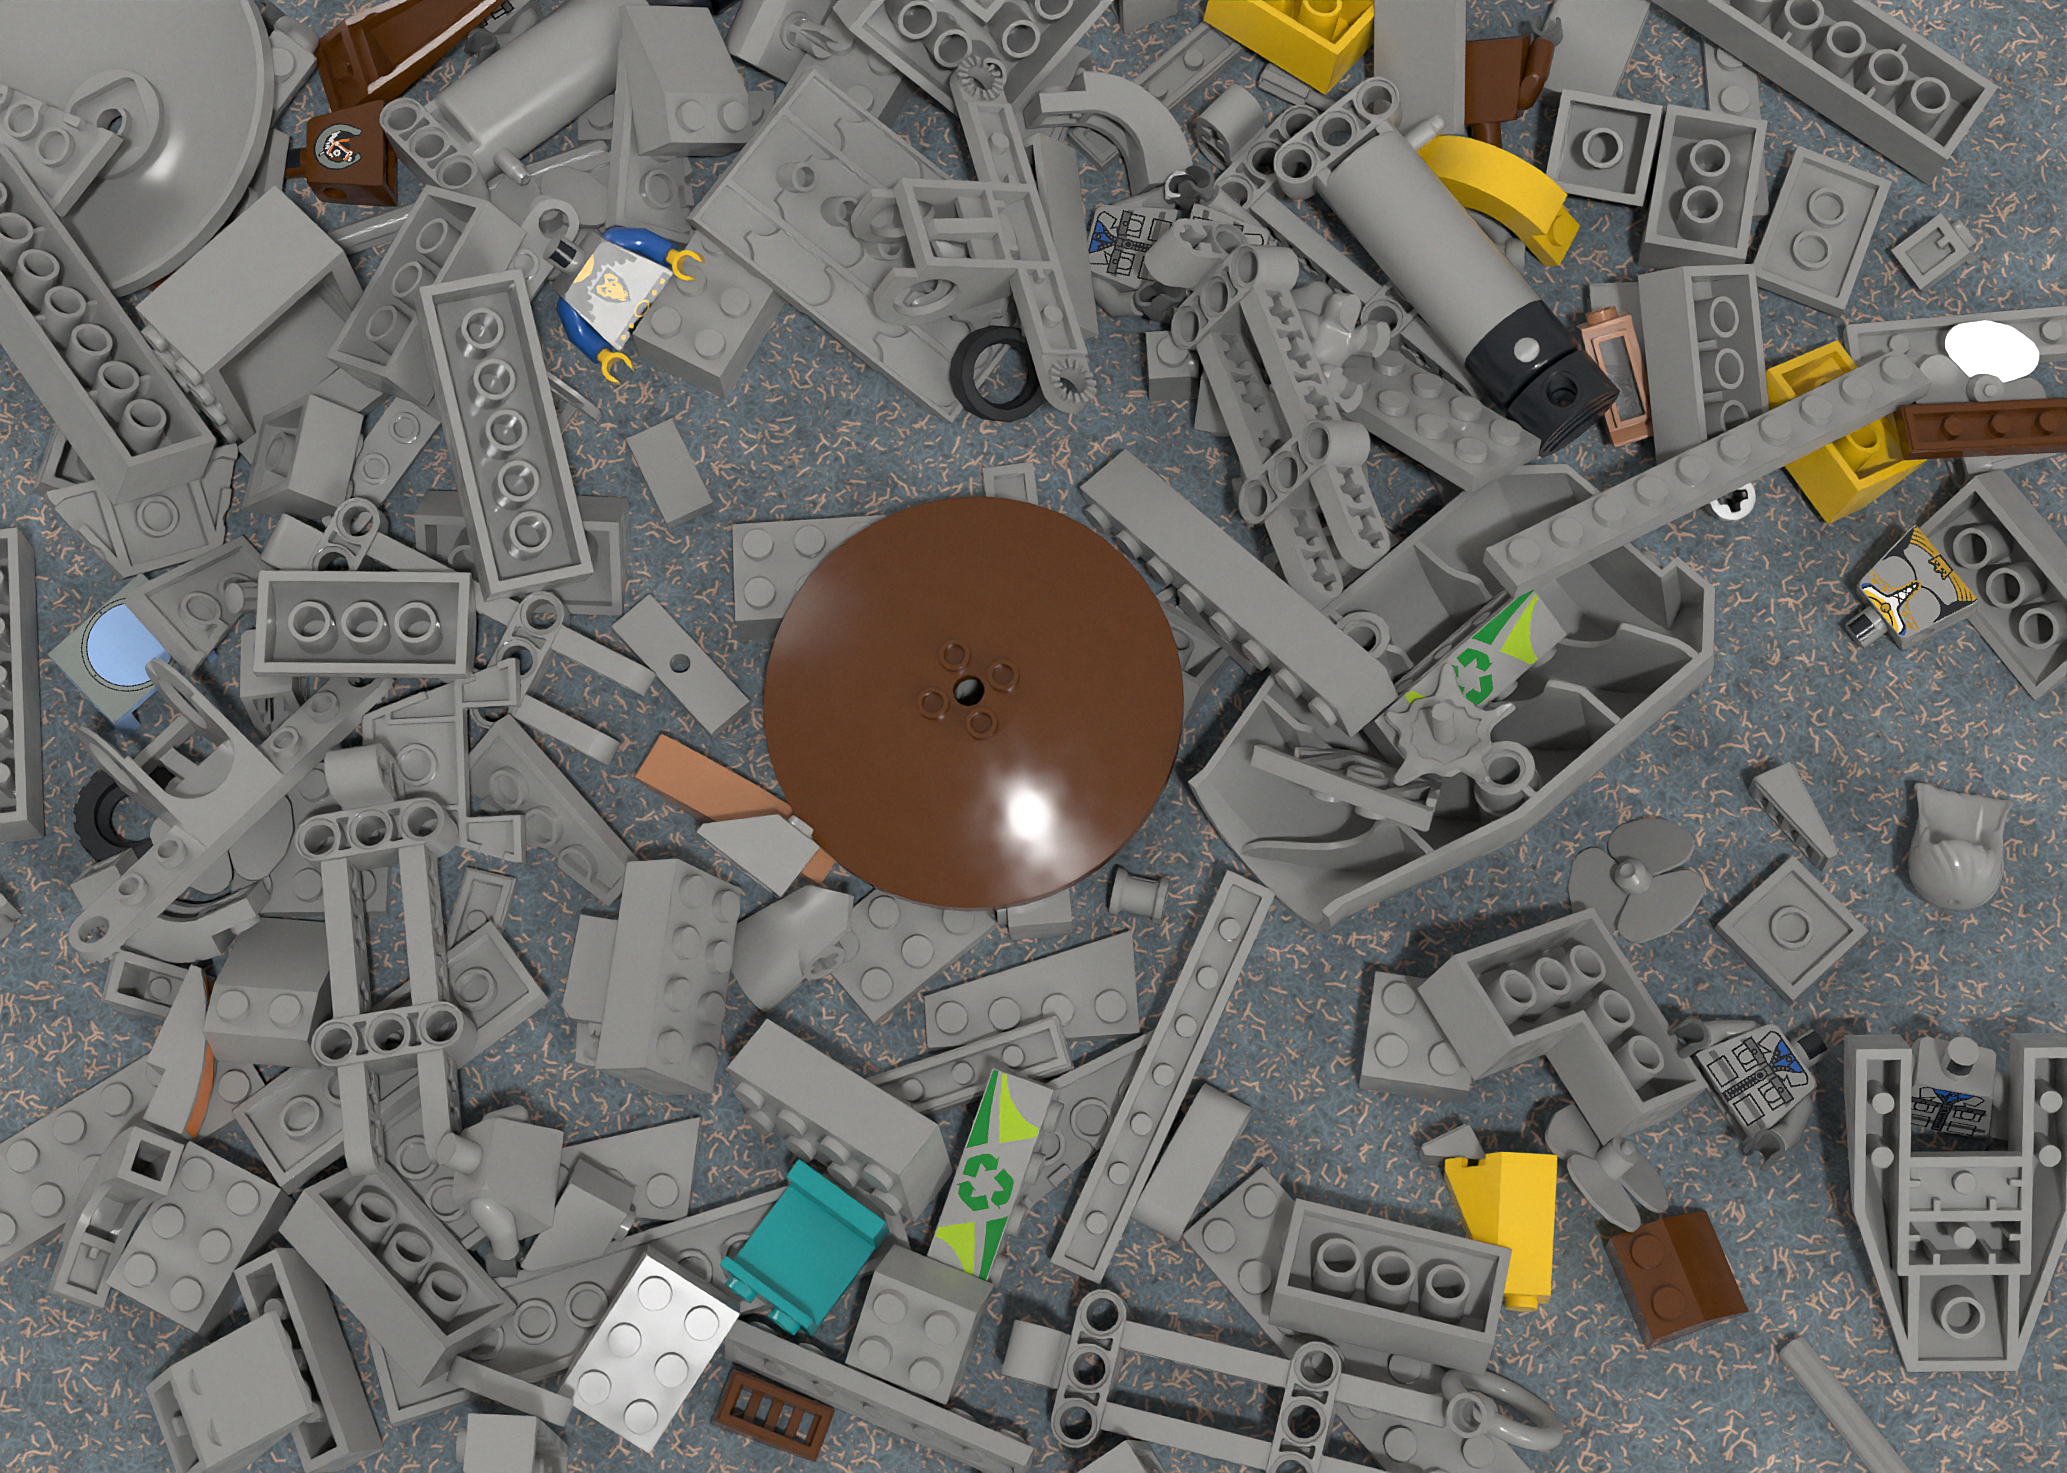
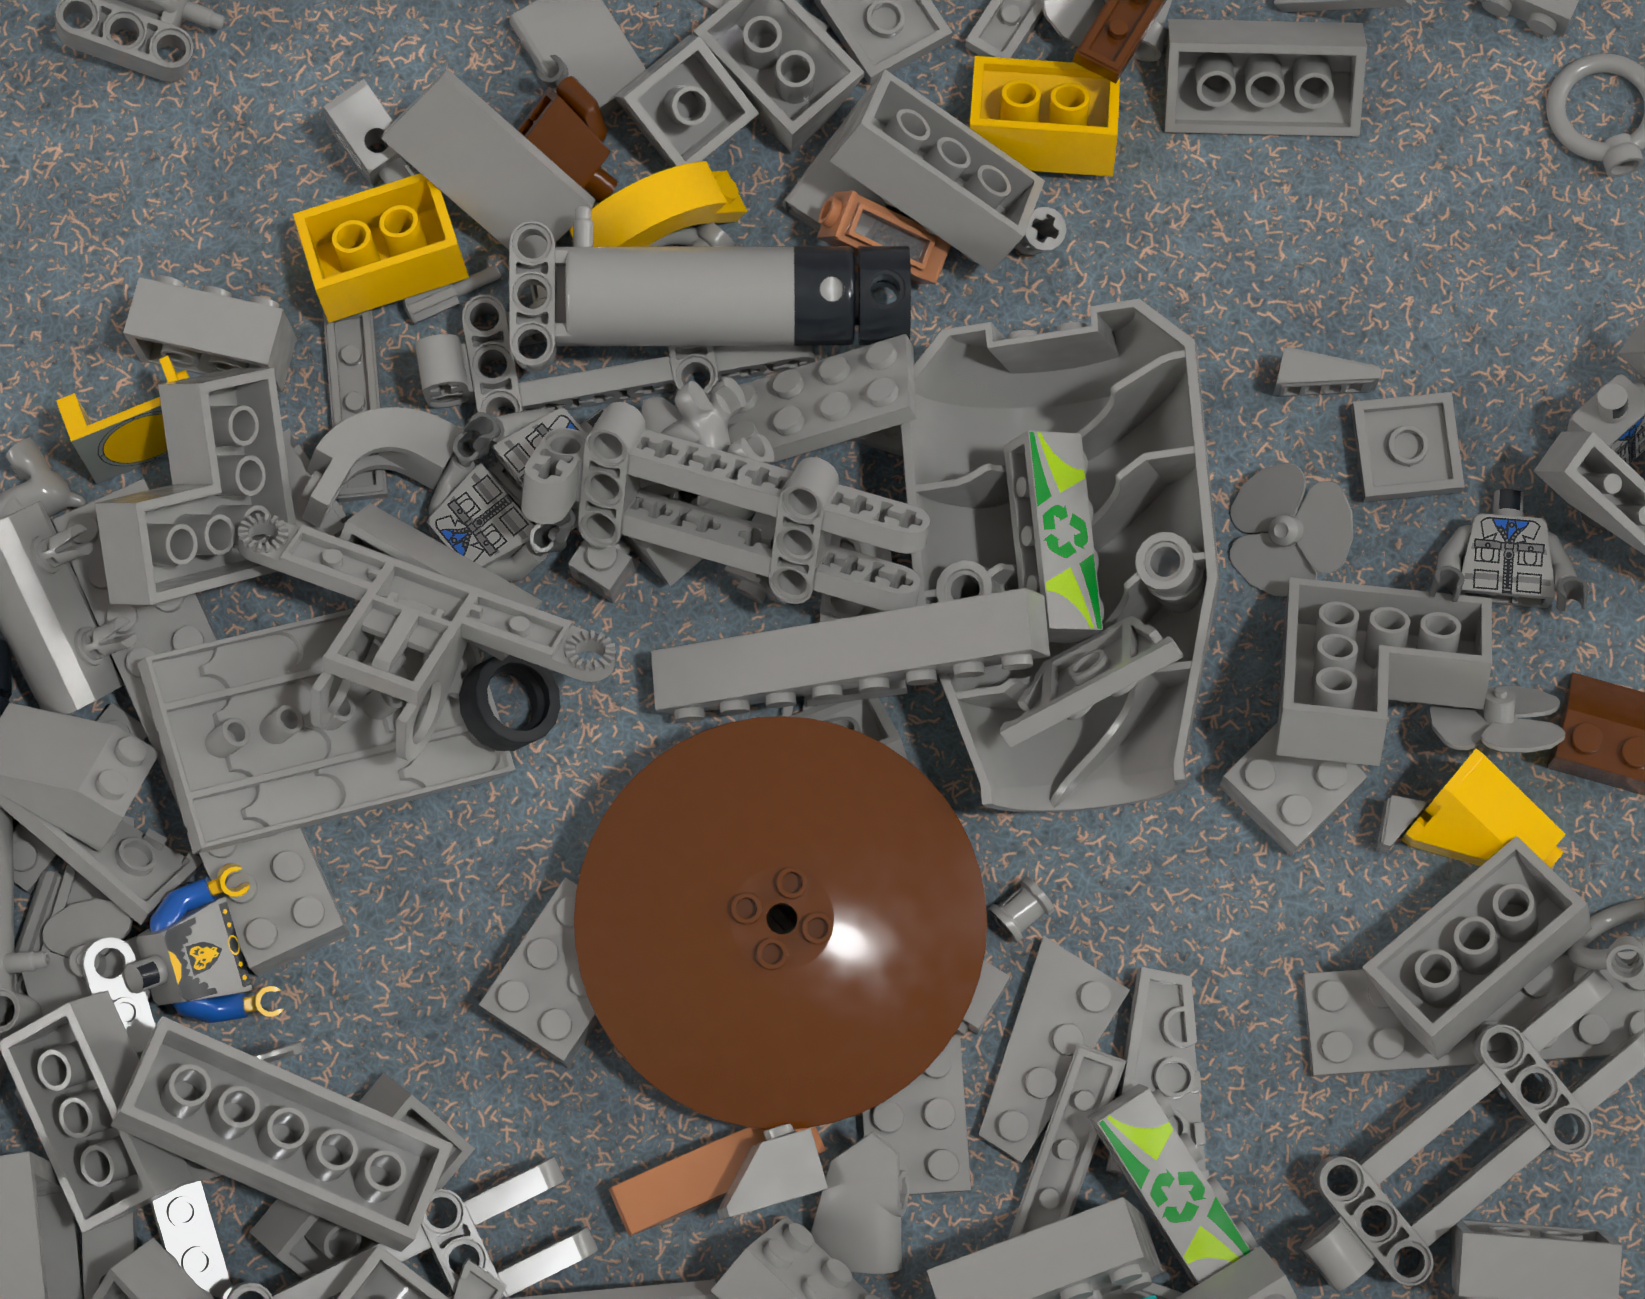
camera: 55 degrees left, 5 degrees up
(662, 646) = (525, 1132): light grey tile -> none
(670, 473) = (382, 1024): light grey tile -> none
(1011, 482) = (610, 764): light grey plate -> none
(1162, 1078) = (1186, 998): light grey plate -> none
(1191, 1163) = (1264, 1025): light grey beam -> none
(1445, 733) = (1102, 583): light grey piece -> none
(1704, 473) = (1029, 236): light grey plate -> none
(1910, 595) = (1215, 161): torso -> none
(1957, 847) = (1436, 278): light grey piece -> none

